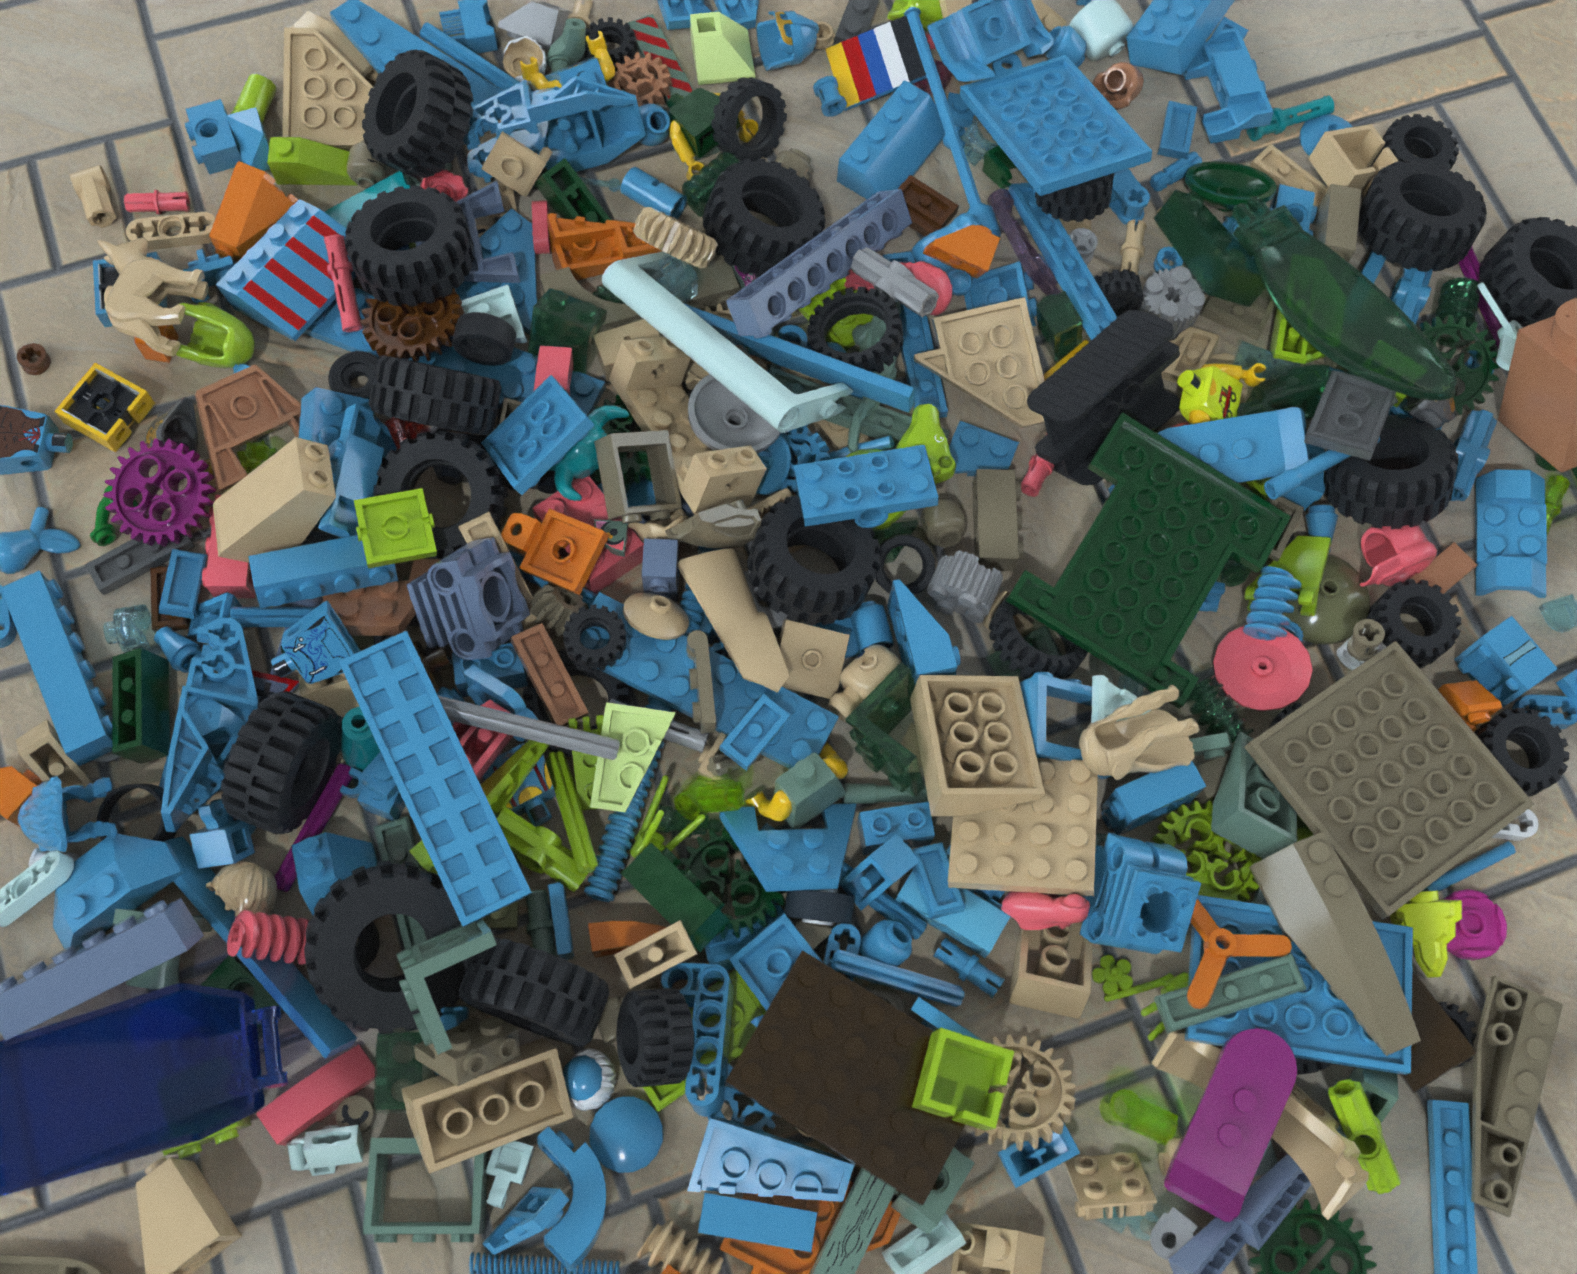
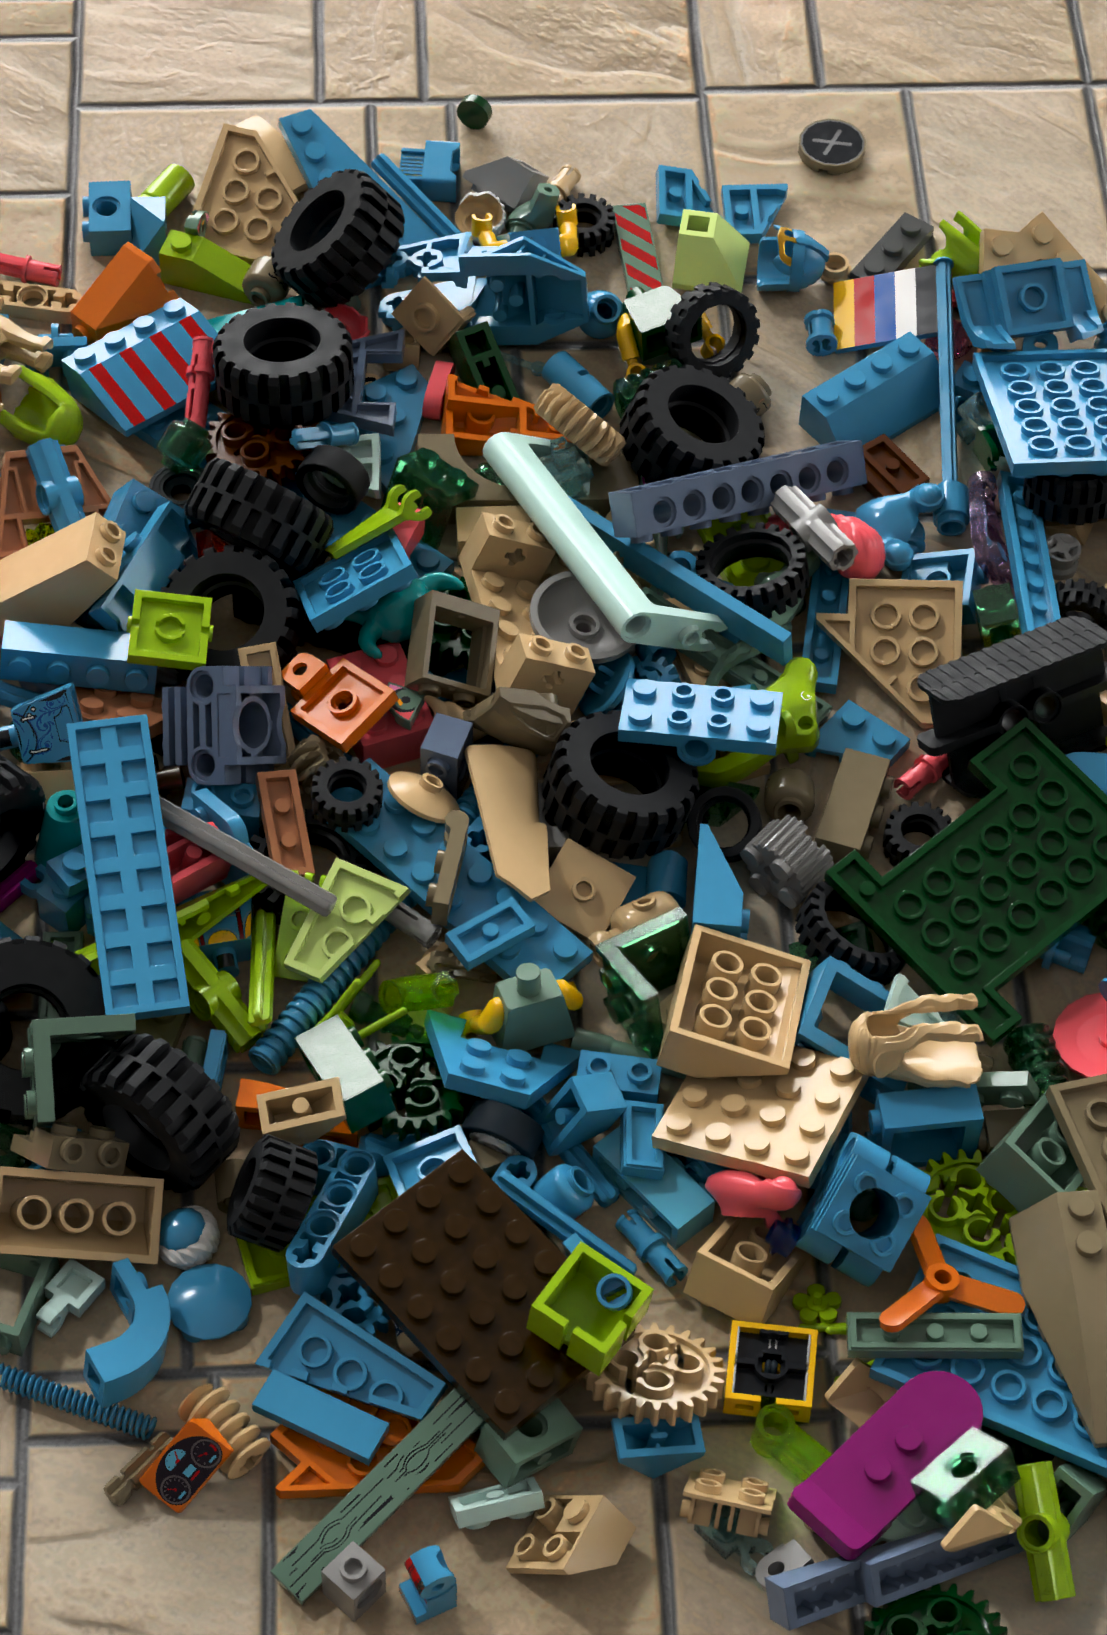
camera: 20 degrees right, 15 degrees down
(252, 414) = (56, 490): none -> dark azure piece
(291, 126) = (197, 223): none -> sand green tile
(347, 340) = (183, 445): none -> clear green head
(465, 302) = (325, 434): none -> dark azure axle
(533, 1213) = (78, 1336): dark azure wing -> none
(540, 374) = (381, 521): none -> lime flag
(637, 79) = (604, 268): nougat gear -> none
(965, 249) = (912, 517): orange slope -> none
(989, 1071) = (611, 1285): none -> dark azure hinge
(1057, 513) = (909, 820): none -> black tyre
(1078, 937) = (783, 1237): none -> clear blue plate
(1102, 1053) = (770, 1367): none -> piece
(1303, 1104) = (967, 1473): none -> clear green brick

